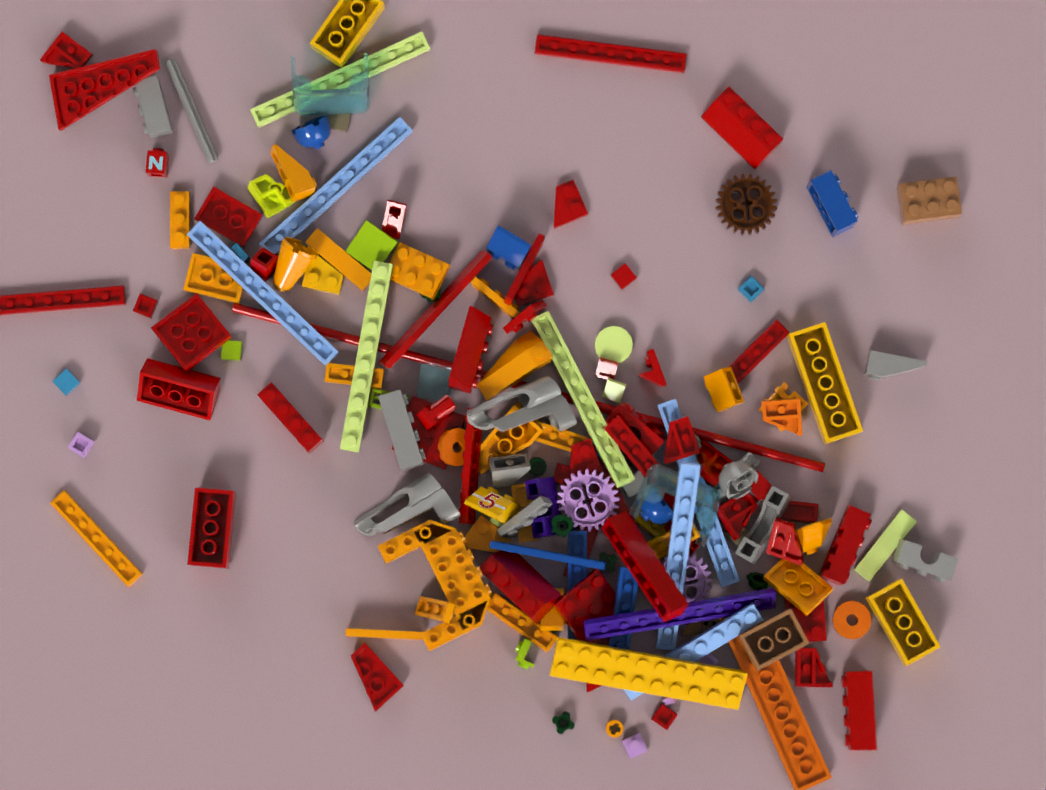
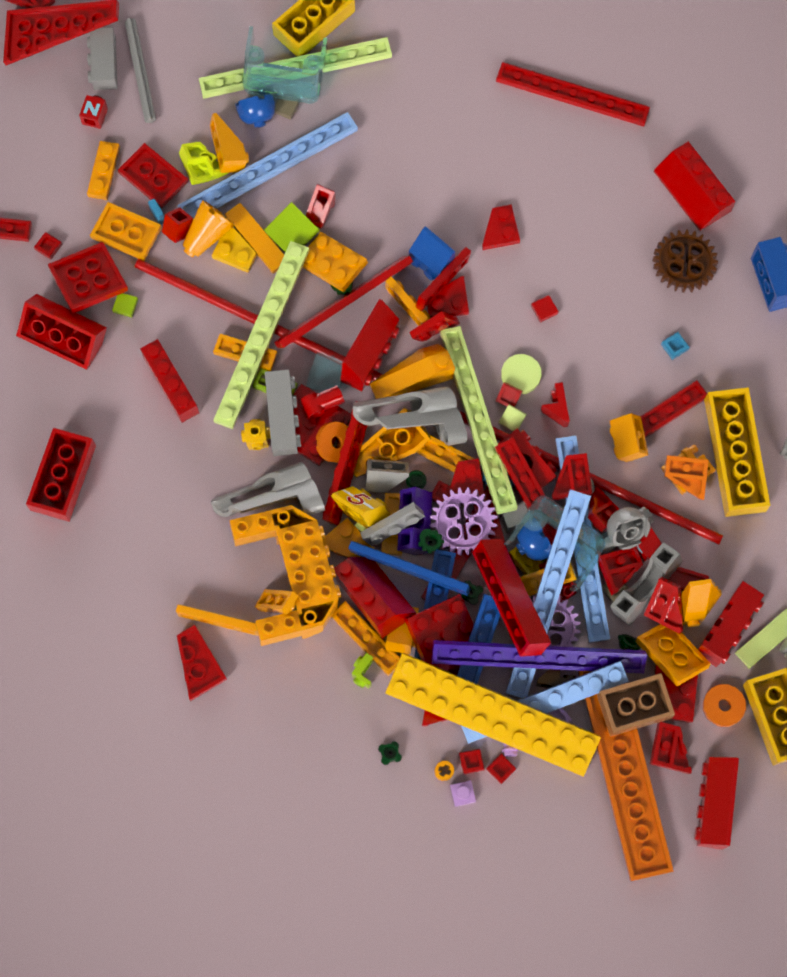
camera: 10 degrees right, 10 degrees down
(262, 293) = (170, 252): light blue plate -> none
(388, 457) = (259, 440): none -> yellow brick
(637, 715) = (471, 761): none -> red tile

